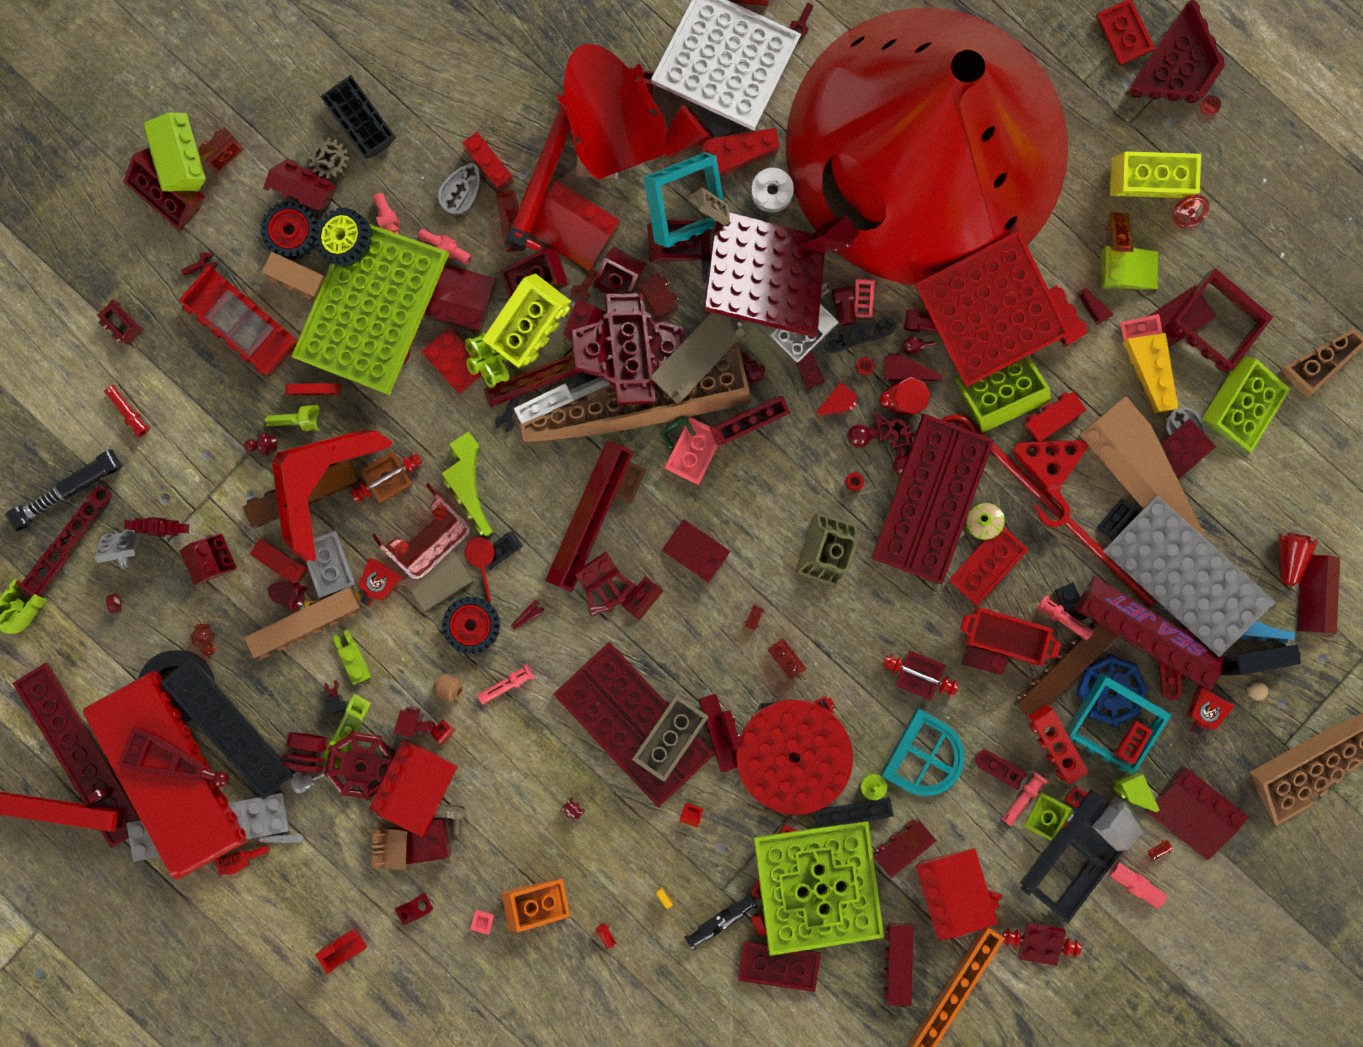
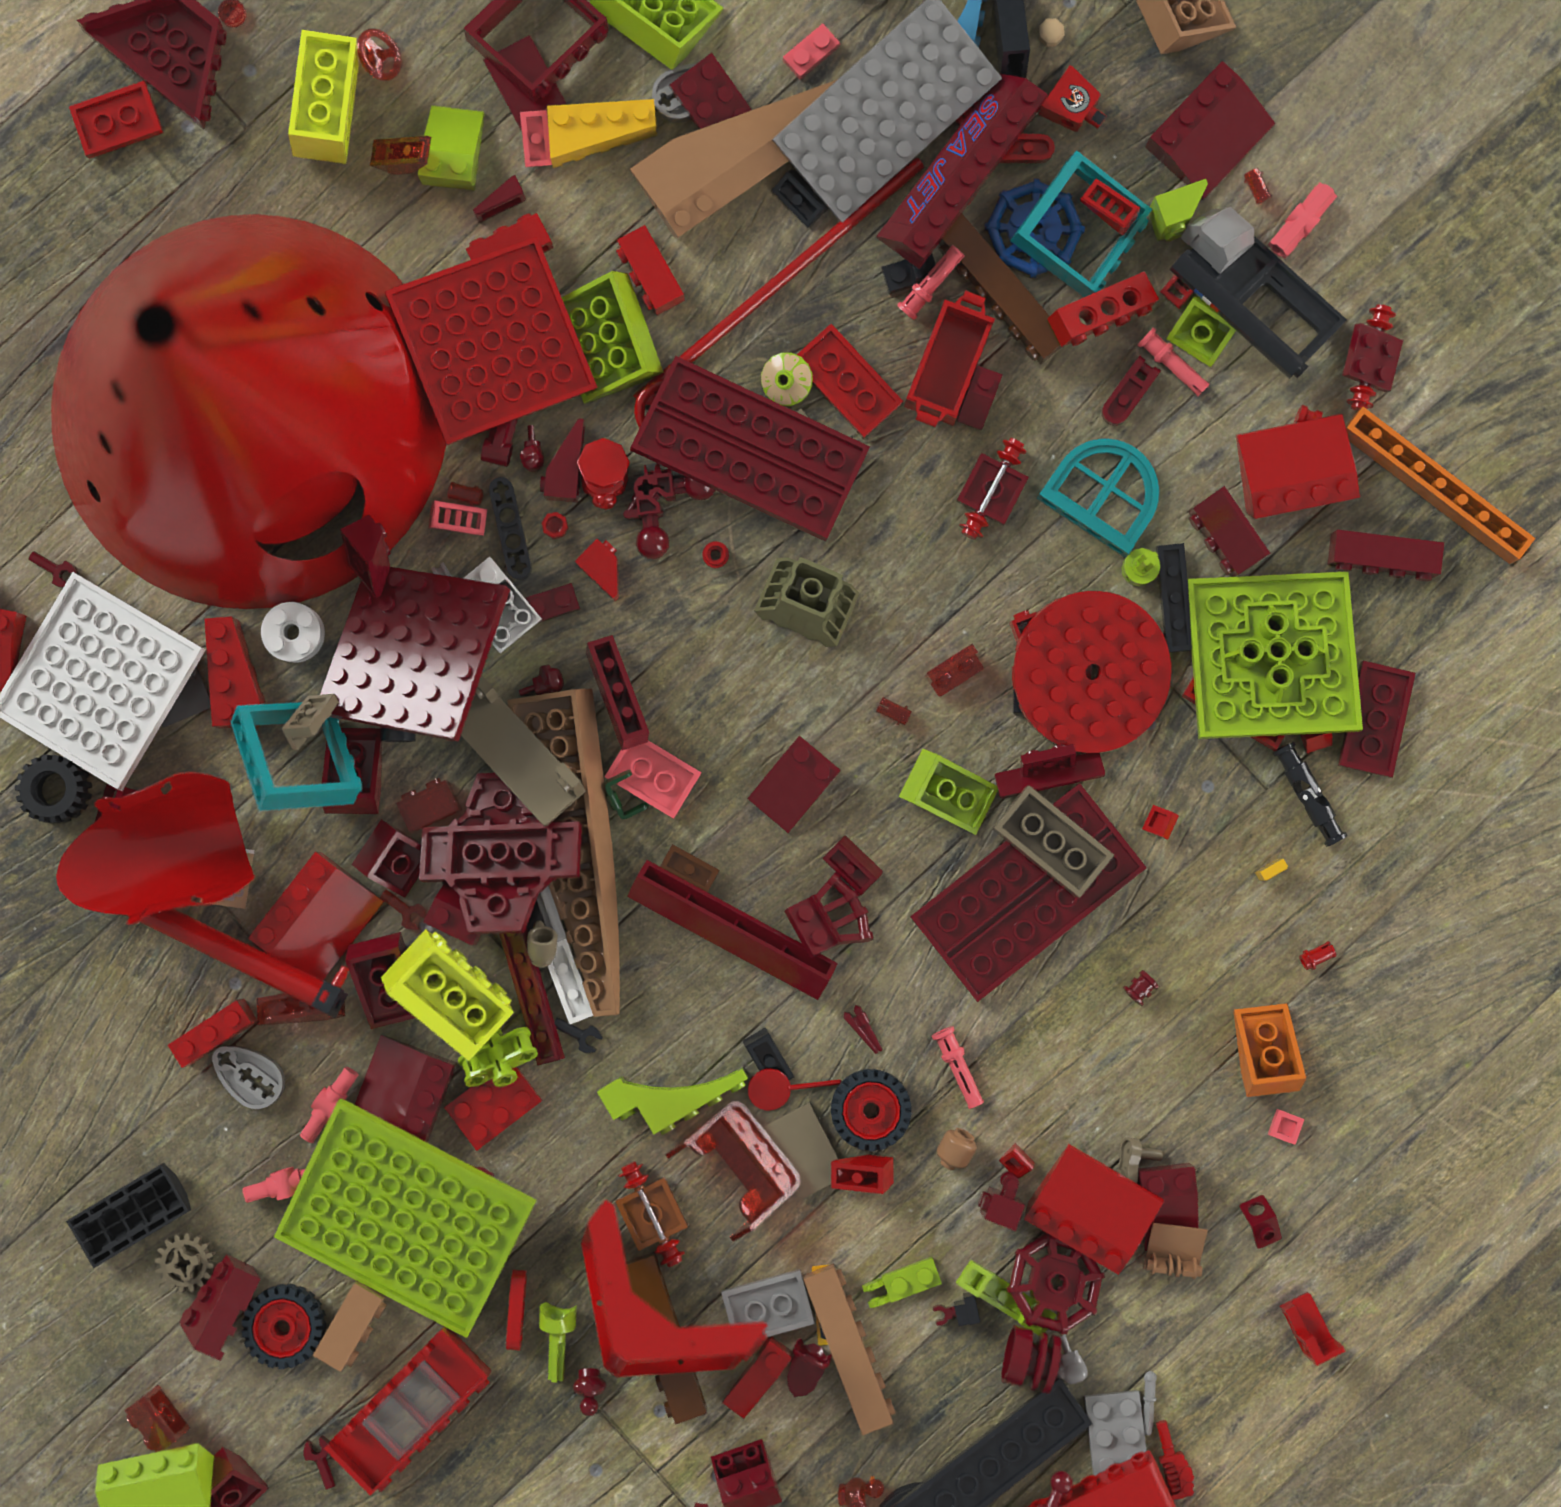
camera: 85 degrees left, 0 degrees up
(330, 234) = (314, 1236): wheel -> none
(378, 581) = (798, 1237): red torso -> none
(425, 623) = (863, 1173): none -> red slope
(567, 383) = (541, 944): none -> dark tan piece
(647, 21) = (33, 781): none -> black tyre
(684, 133) = (199, 747): red slope -> none
(700, 661) = (949, 791): none -> lime slope
(843, 300) = (459, 546): dark red piece -> none
(881, 301) = (465, 493): none -> clear red pin
(1050, 483) = (743, 283): red piece -> none
(1225, 518) = (811, 51): none -> coral plate

